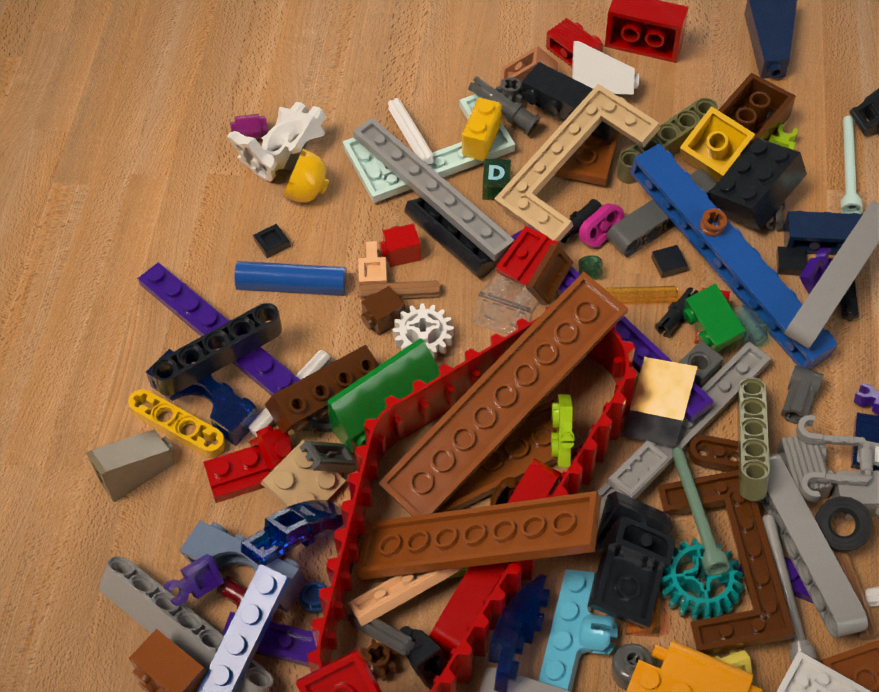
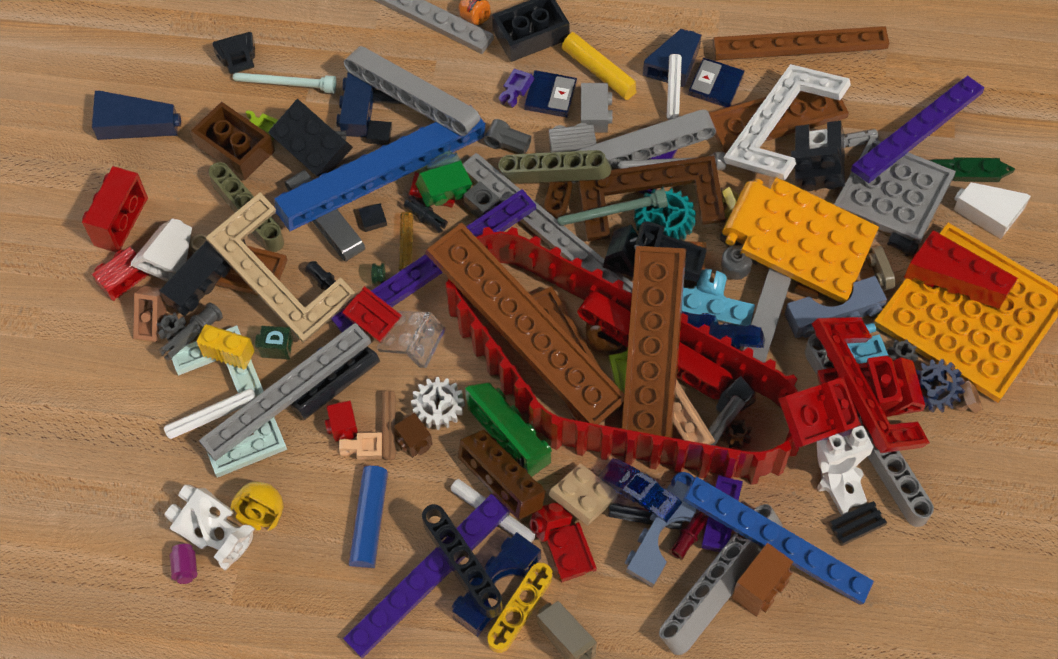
camera: 90 degrees left, 5 degrees up
(198, 579) = (682, 564): dark purple plate -> none
(271, 240) = (322, 538): black tile -> none
(330, 456) = (560, 474): dark grey tile -> none
(549, 274) = (394, 296): reddish brown plate -> none
(563, 439) = (558, 283): lime plate -> none
(595, 228) = (330, 258): dark pink plate -> none
(639, 470) = (580, 245): light grey plate -> none
(660, 401) = (529, 222): pearl gold sticker -> none
(715, 215) = (356, 172): dark orange bush -> none
(716, 144) = (265, 165): yellow slope -> none
(815, 269) = (398, 116): dark purple plate -> none
(862, 520) = (626, 107): black tyre -> none
(865, 455) = (579, 99): light grey piece -> none

